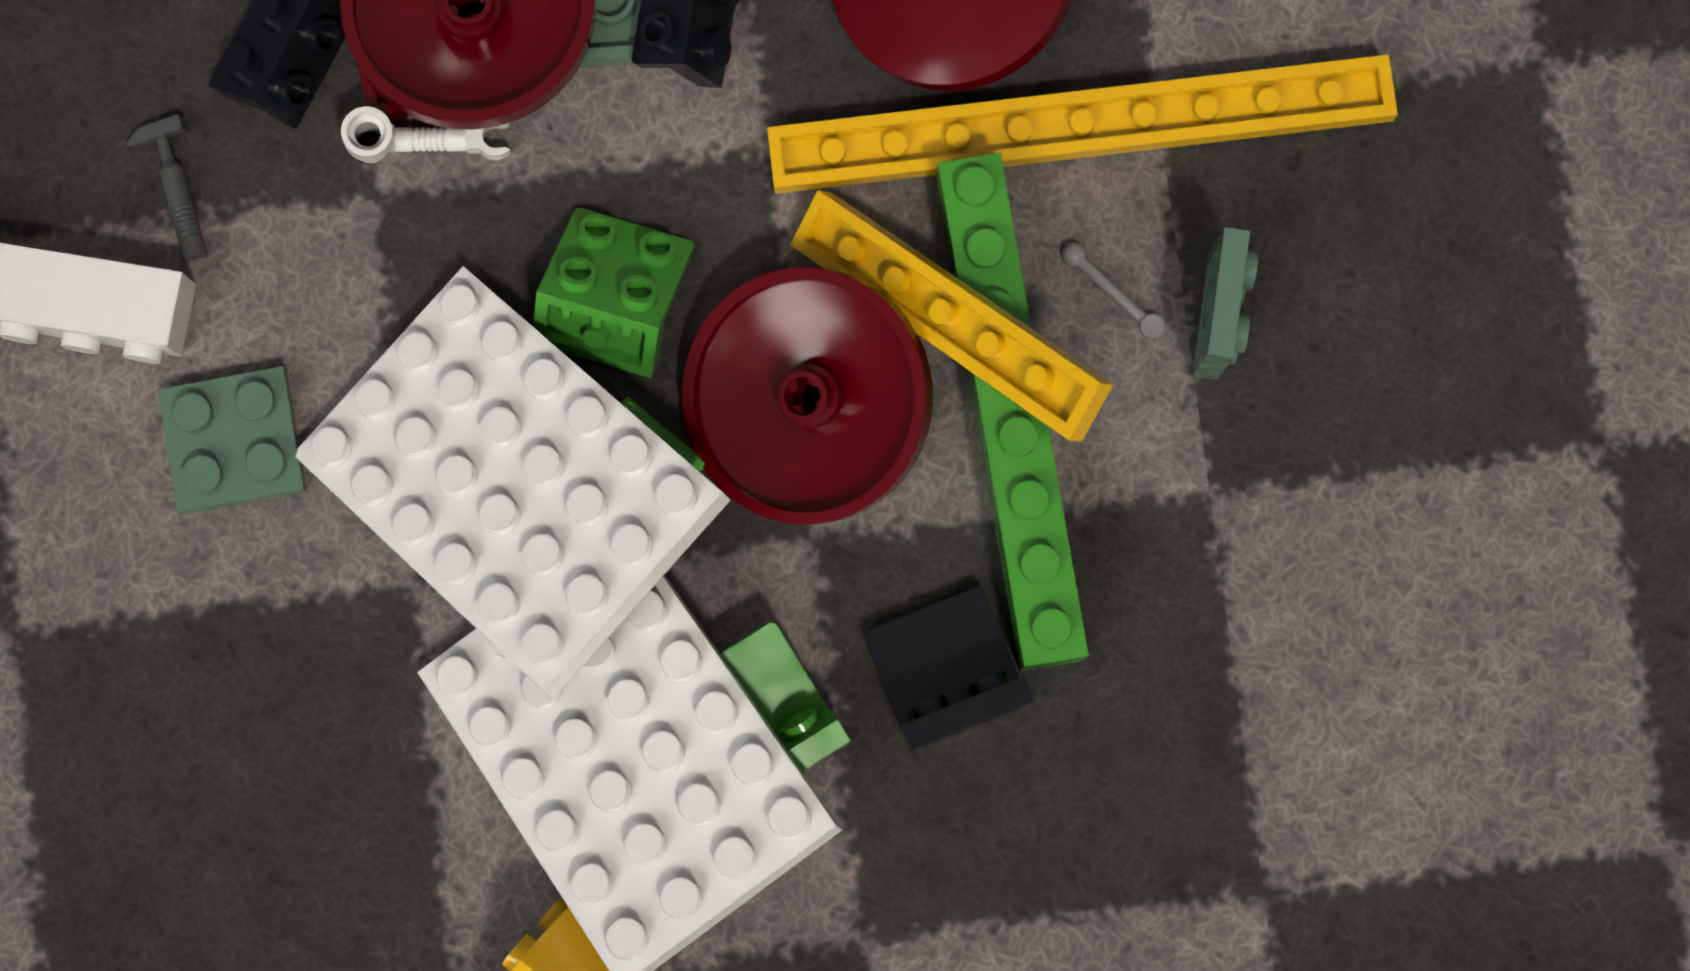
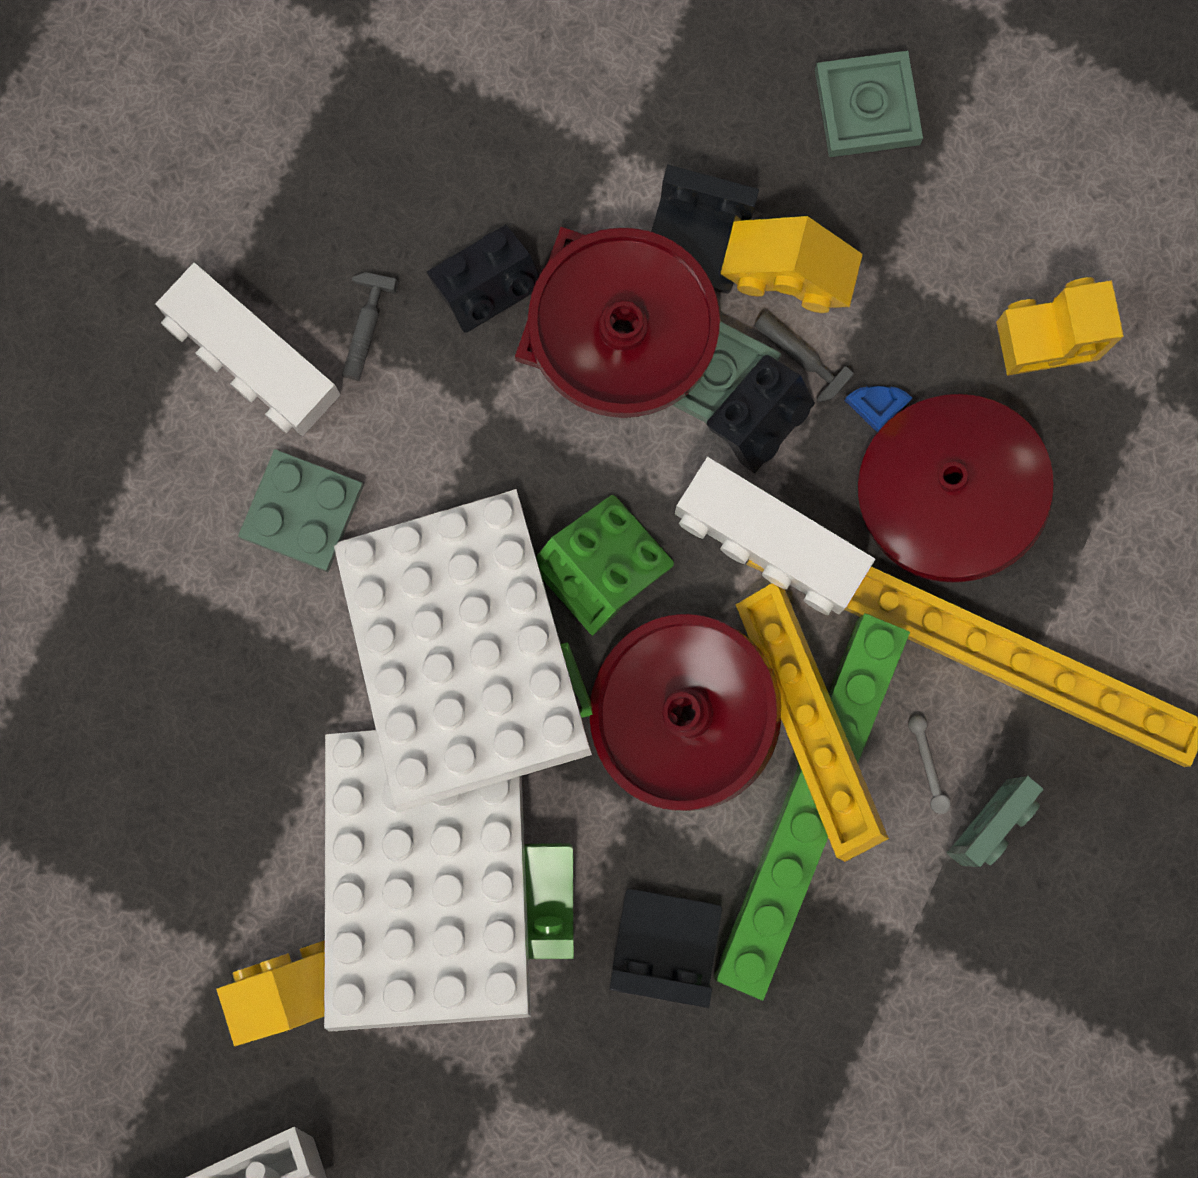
camera: 30 degrees right, 0 degrees up
(407, 139) = (532, 384): white brick -> none
(783, 141) = (773, 537): none -> white brick

